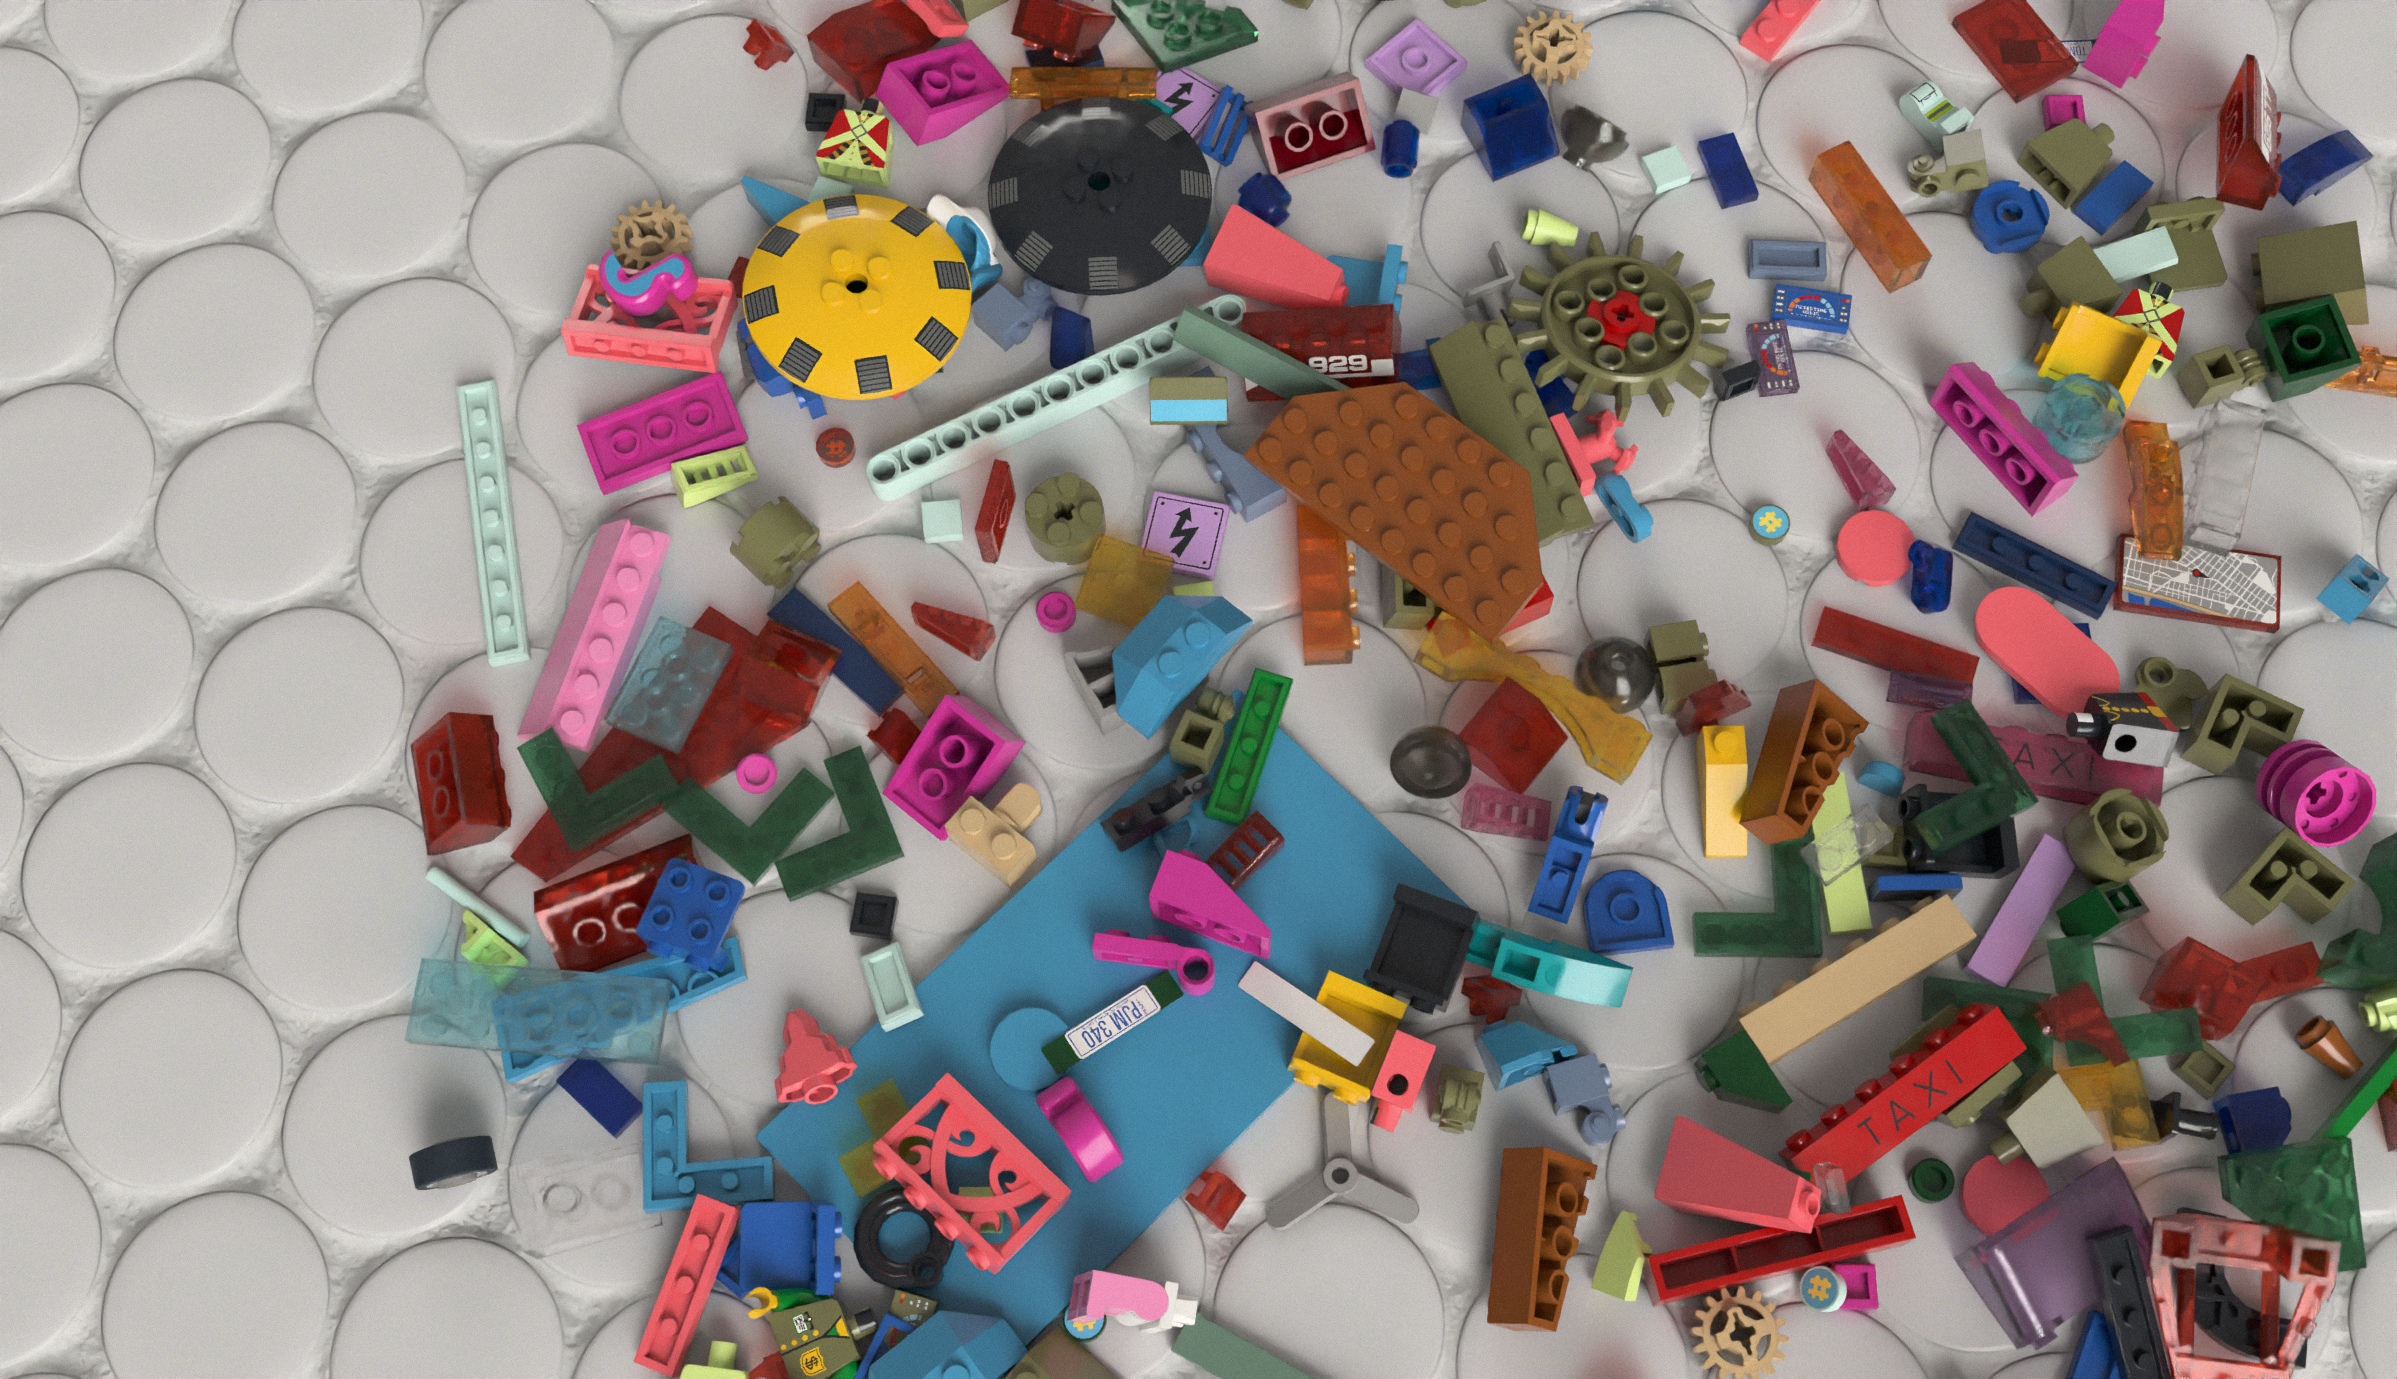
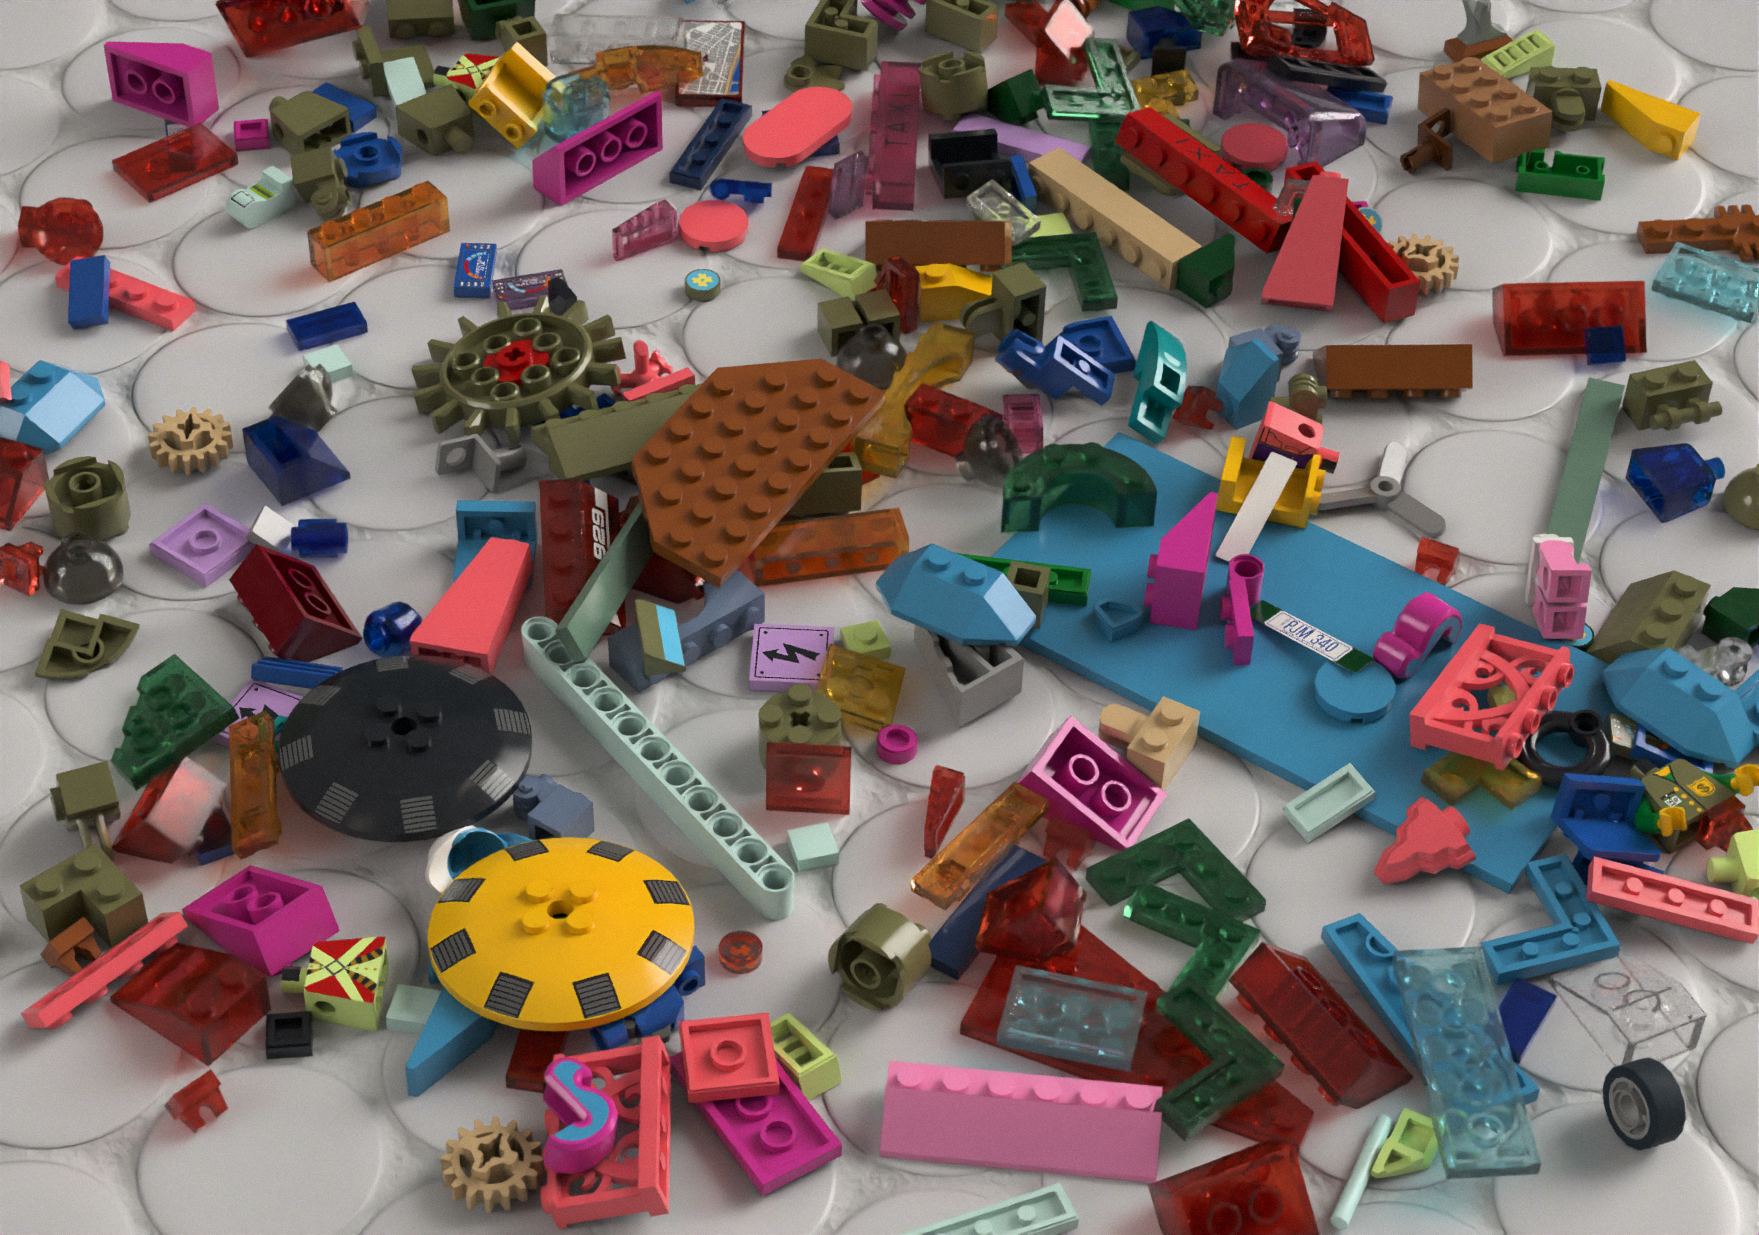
camera: 105 degrees left, 25 degrees down
(691, 915) = (1326, 931): blue bracket -> none
(702, 412) = (728, 1058): none -> coral tile
(756, 773) = (1141, 948): dark pink tile -> none
(874, 916) = (1259, 837): black tile -> none
(1070, 338) = (593, 751): clear blue slope -> none
(1156, 810) = (1099, 626): black hinge -> none
(1243, 834) = (1106, 549): clear red slope -> none
(1378, 805) = (1077, 476): none -> clear green brick
(1423, 949) = (1177, 441): black panel -> none
(1545, 229) = (407, 434): yellowish green cone -> none
(1616, 497) = (708, 358): dark azure plate -> none
(1622, 1259) = (1390, 323): yellowish green slope -> none
(1669, 820) = (1014, 303): none -> olive brick
(1761, 684) = (843, 274): none -> yellowish green slope
(1787, 260) = (423, 287): sand blue tile -> none
(1882, 778) = (930, 206): dark azure tile -> none
(1998, 788) = (935, 127): clear green plate -> none
(2044, 1123) = (1201, 108): torso -> none
(2079, 1016) = (1113, 91): clear red arch -> none
(2125, 728) = (863, 72): black torso -> none

